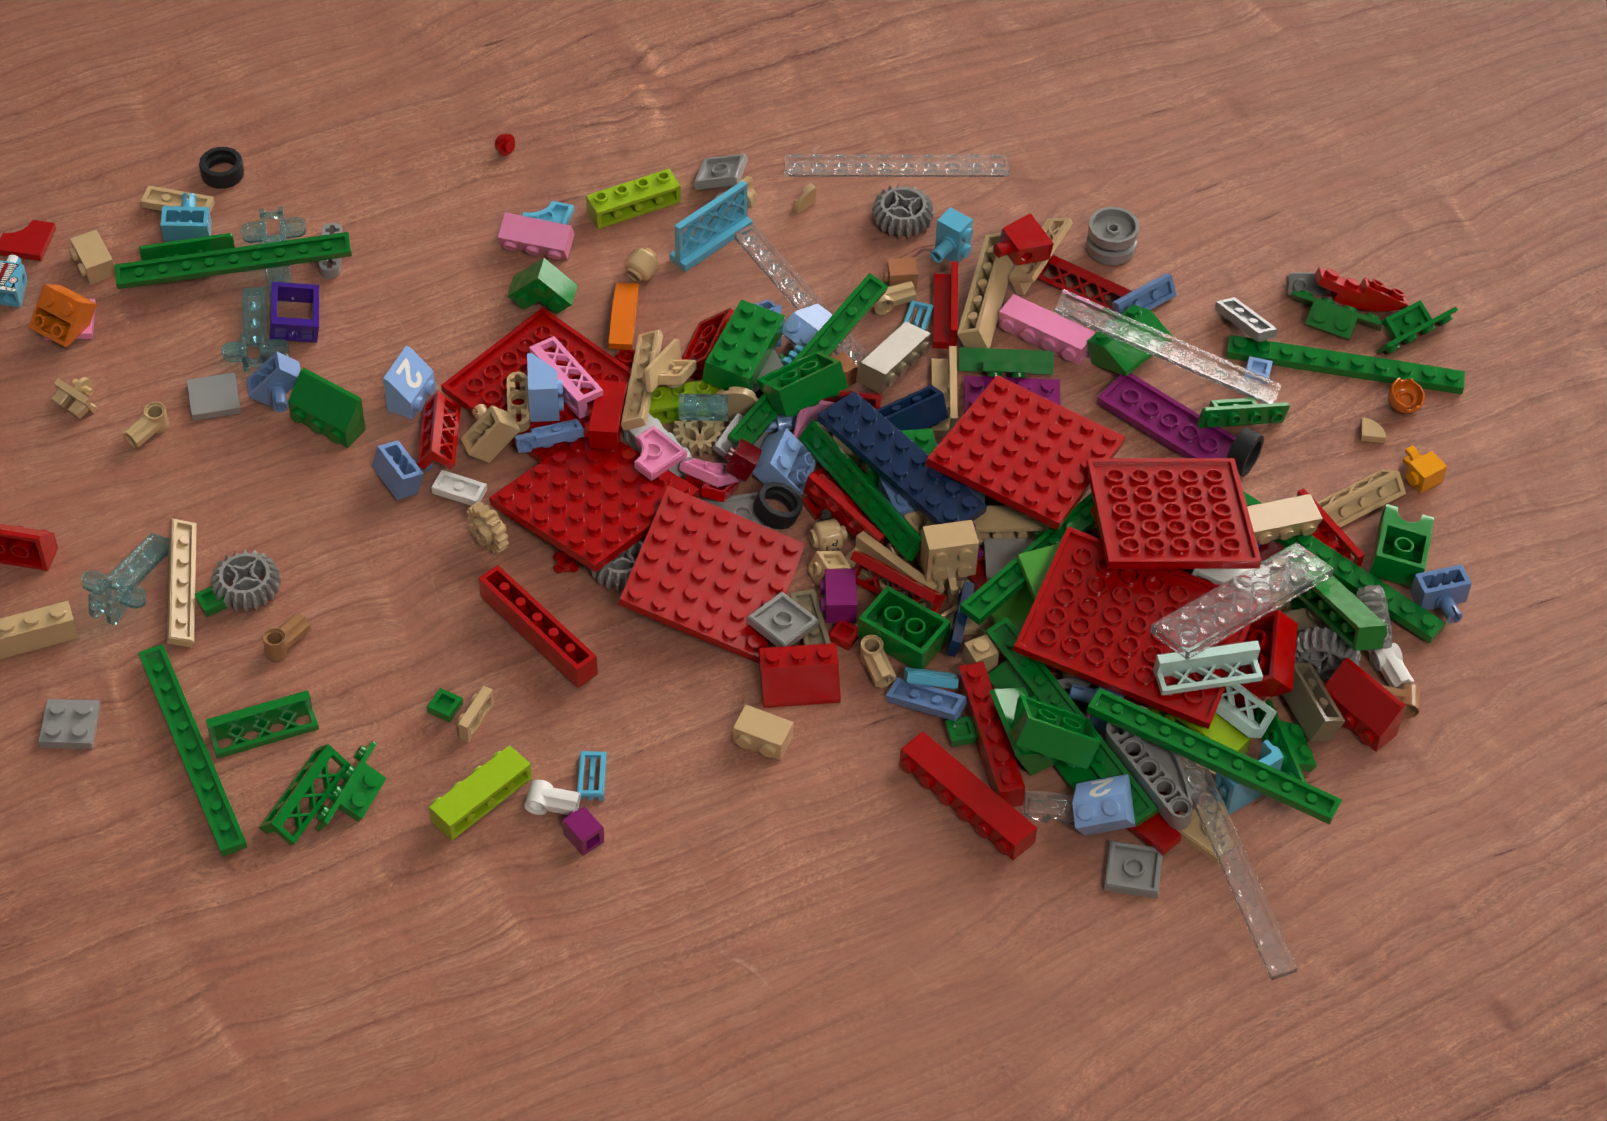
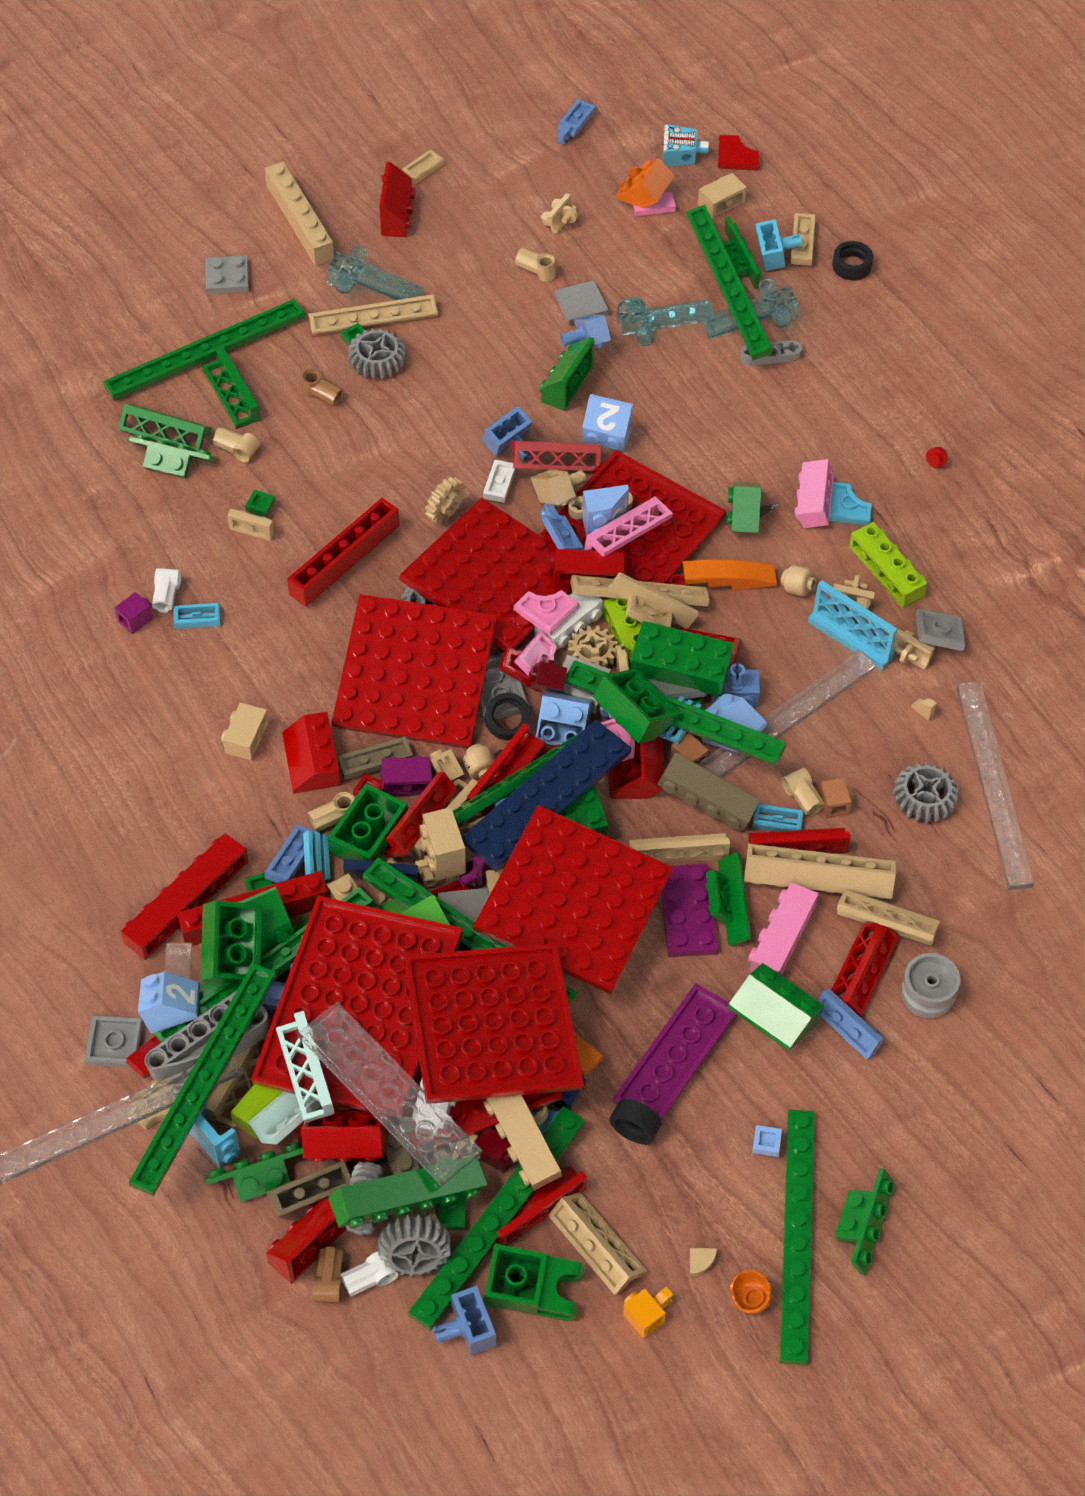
camera: 85 degrees right, 5 degrees up
(282, 327) = (682, 351): dark purple window -> none
(354, 716) = (241, 446): none -> tan piece
(480, 792) = (166, 536): lime brick -> none
(658, 224) = (856, 591): none -> tan hips
(703, 407) = (598, 633): clear light blue bracket -> none
(782, 621) = (365, 730): light grey tile -> none
(917, 410) = (631, 809): dark blue brick -> none
(952, 237) = (887, 834): medium azure brick -> none
(1024, 242) = (874, 885): red torso -> none
(1167, 347) = (758, 1037): clear plate -> none
(1241, 412) = (697, 1117): green bracket -> none
(1246, 319) = (834, 1123): light grey plate -> none
(1306, 282) = (910, 1184): light grey hinge -> none
(1367, 295) = (897, 1243): red slope -> none
(1409, 322) = (868, 1300): green bracket -> none

